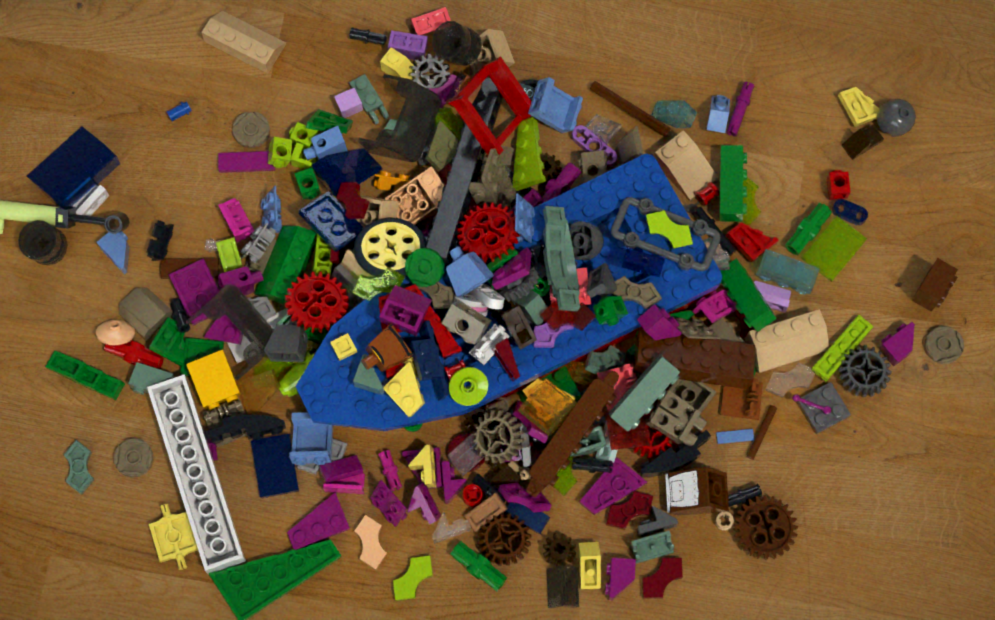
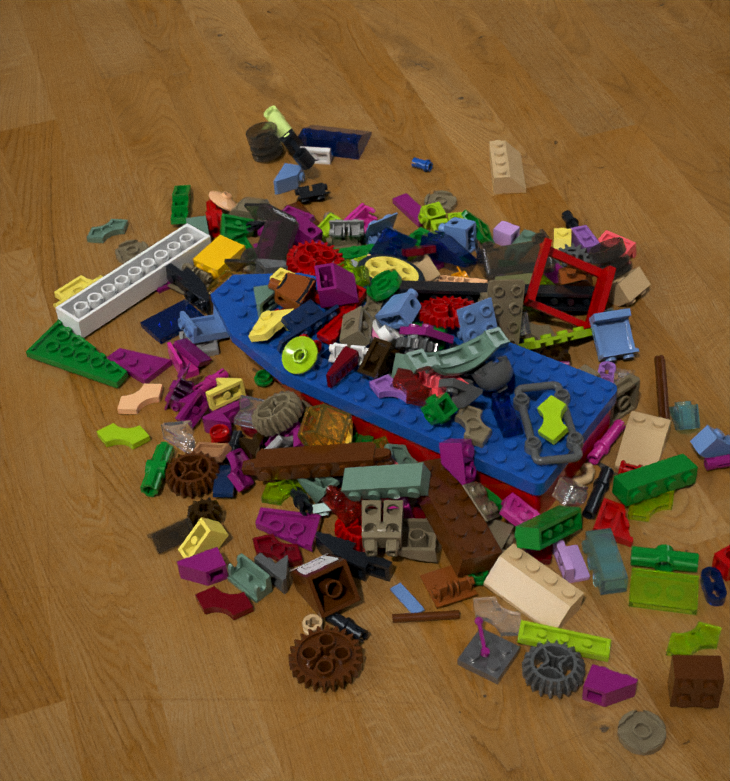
camera: 65 degrees right, 30 degrees down
(889, 267) = (701, 637): none -> clear neon green tile

